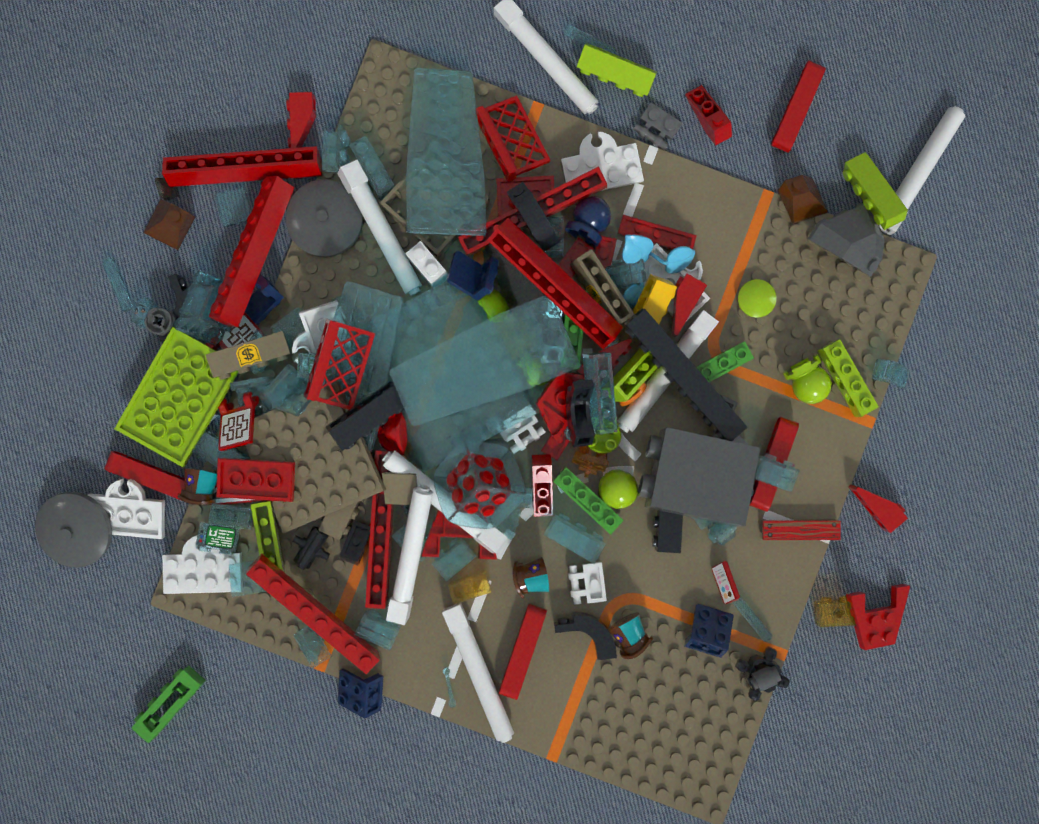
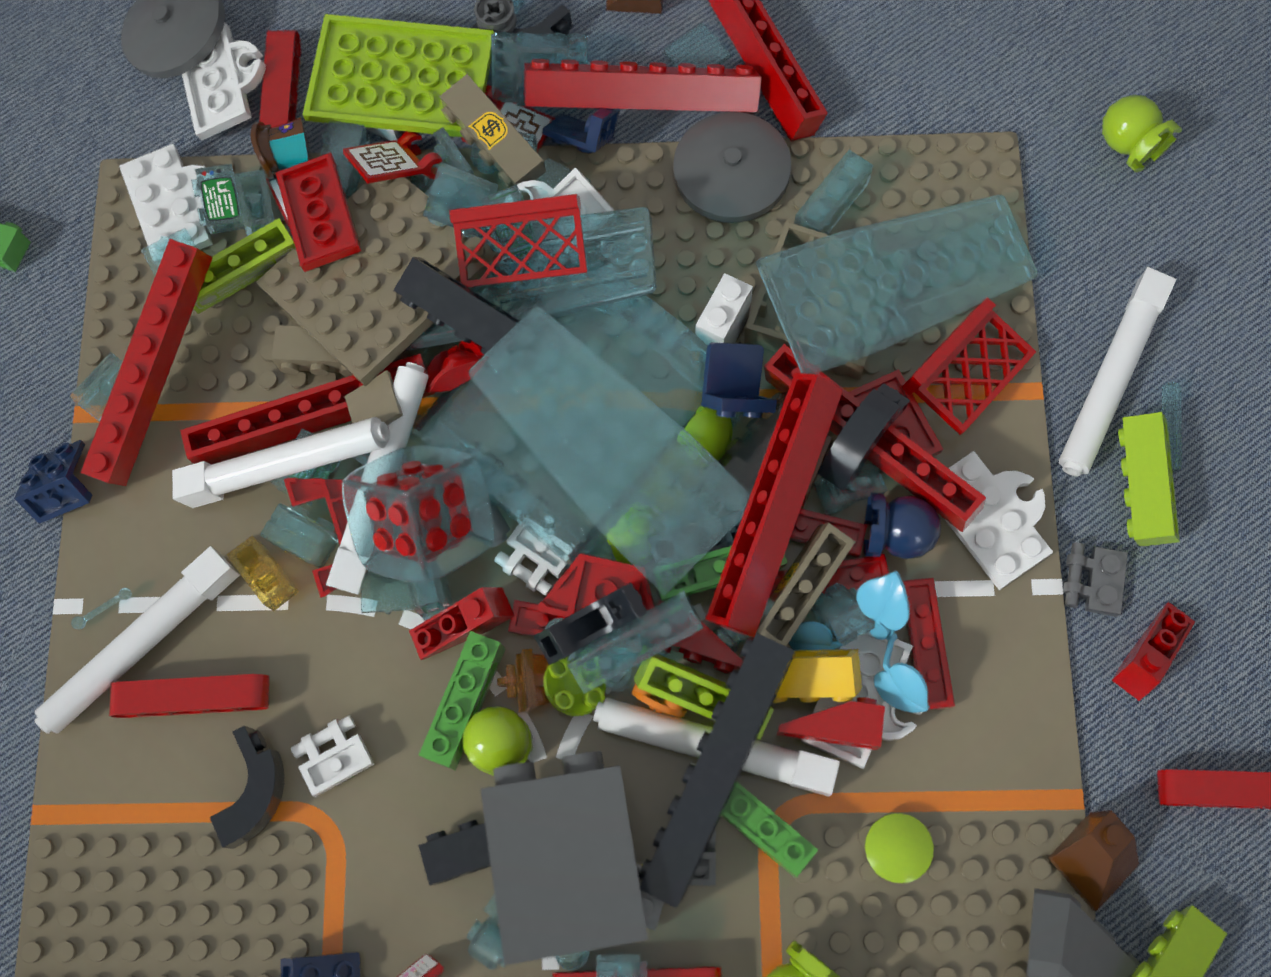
camera: 75 degrees right, 15 degrees down
(302, 116) = (861, 84): red slope -> none
(310, 548) = (245, 328): black pin -> none
(335, 149) = (830, 143): clear light blue bracket -> none
(355, 543) = (269, 384): black plate -> none
(356, 183) = (754, 235): white brick -> none
(377, 630) = (153, 466): clear light blue brick -> none
(530, 577) = (307, 657): hat -> none
(575, 537) = (396, 705): clear light blue brick -> none
(631, 636) = (265, 856): hat -> none

